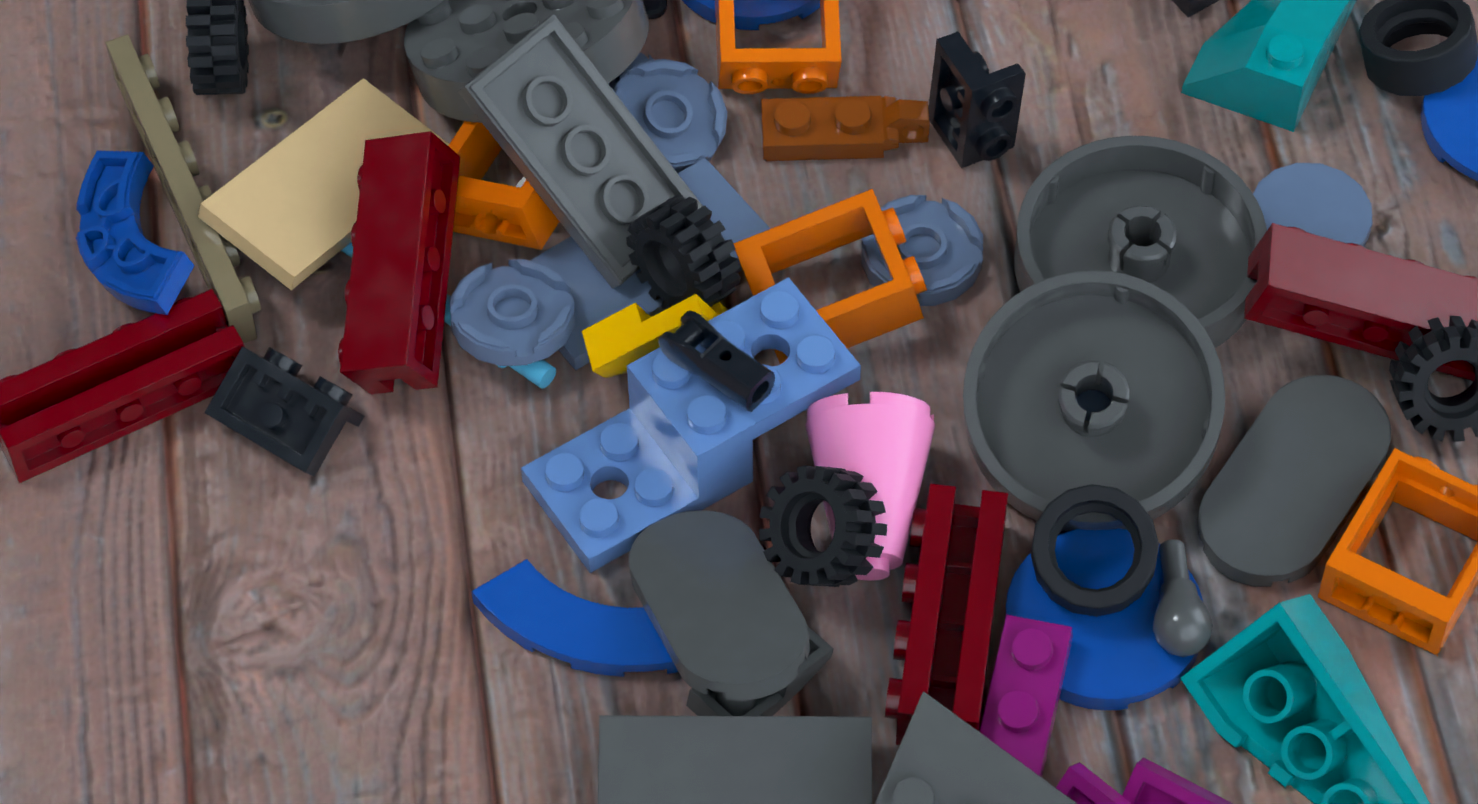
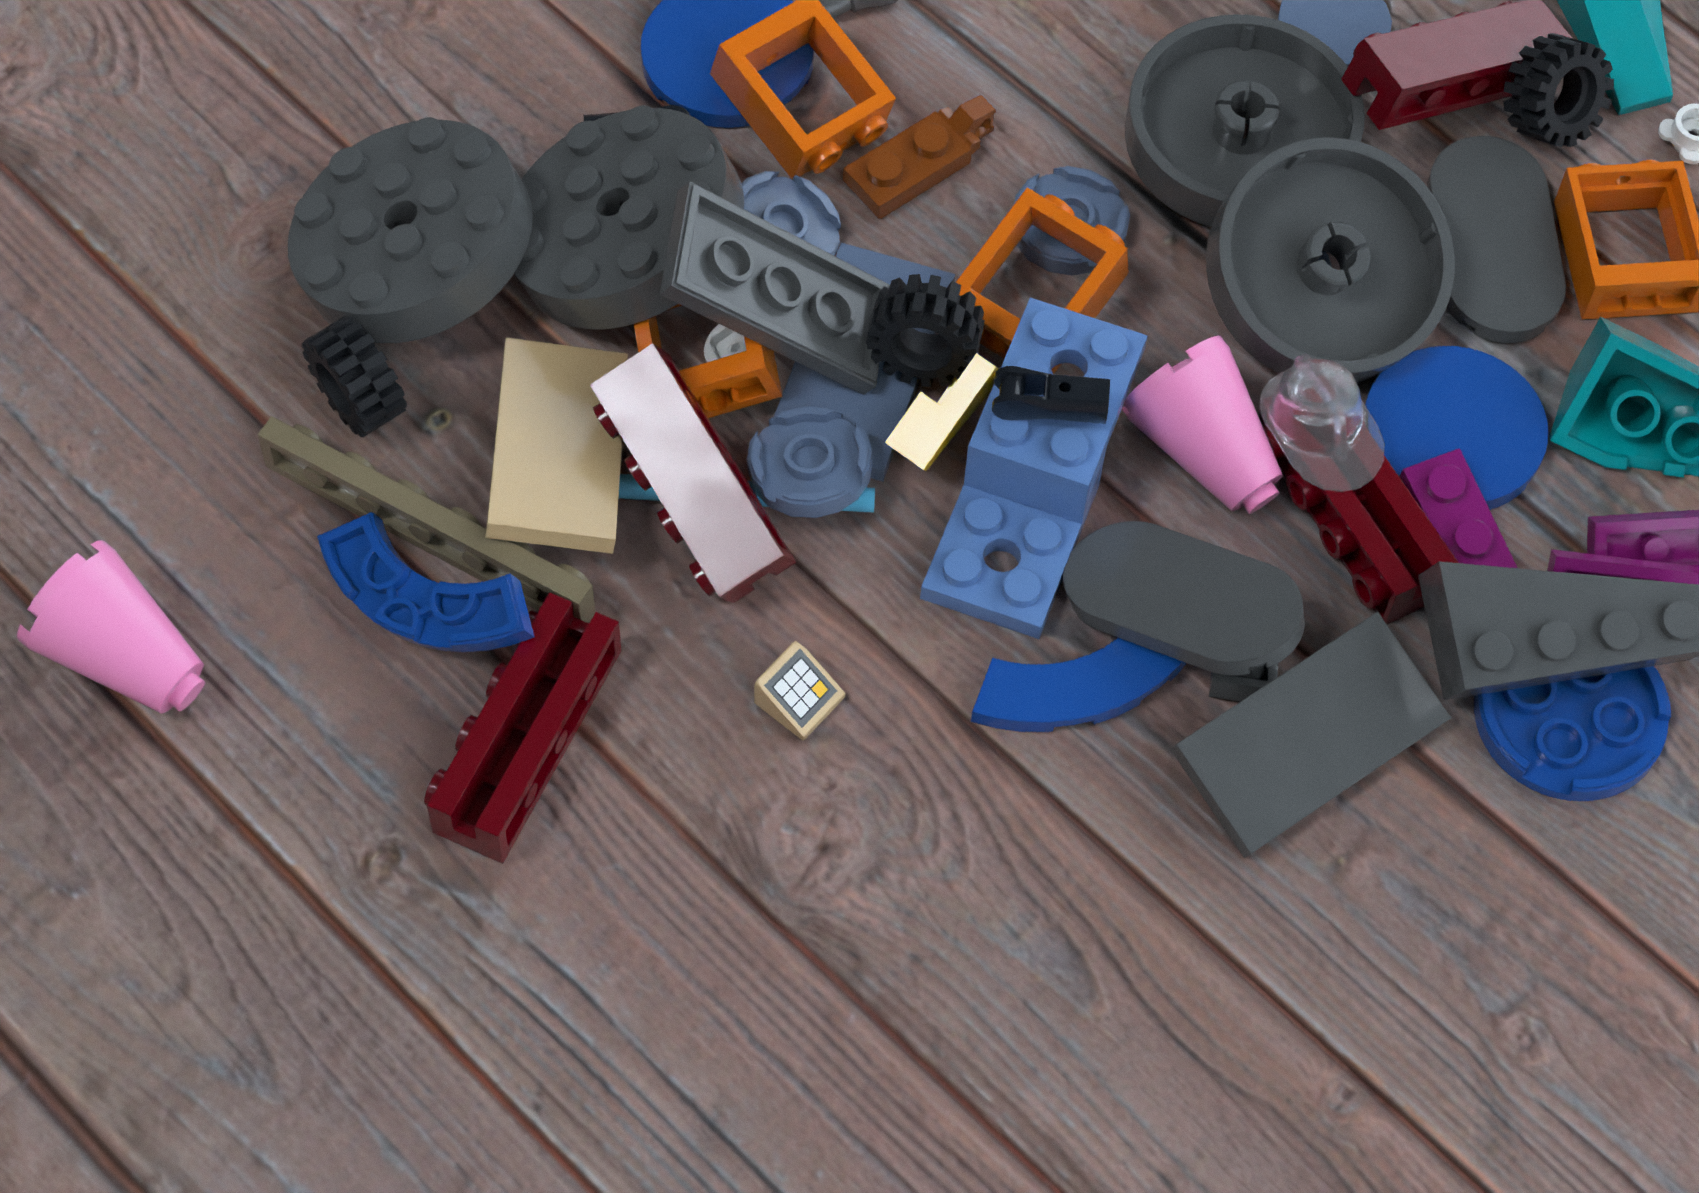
camera: 40 degrees left, 5 degrees up
(280, 410) = (685, 660): black bracket -> none
(350, 488) = (797, 691): none -> slope
(792, 520) = (1211, 520): black tyre -> none
(959, 533) = (1323, 424): none -> clear piece
(971, 107) = (1027, 74): black bracket -> none
(1100, 500) = (1471, 359): black tyre -> none
(1181, 618) = (1524, 392): dark grey piece -> none

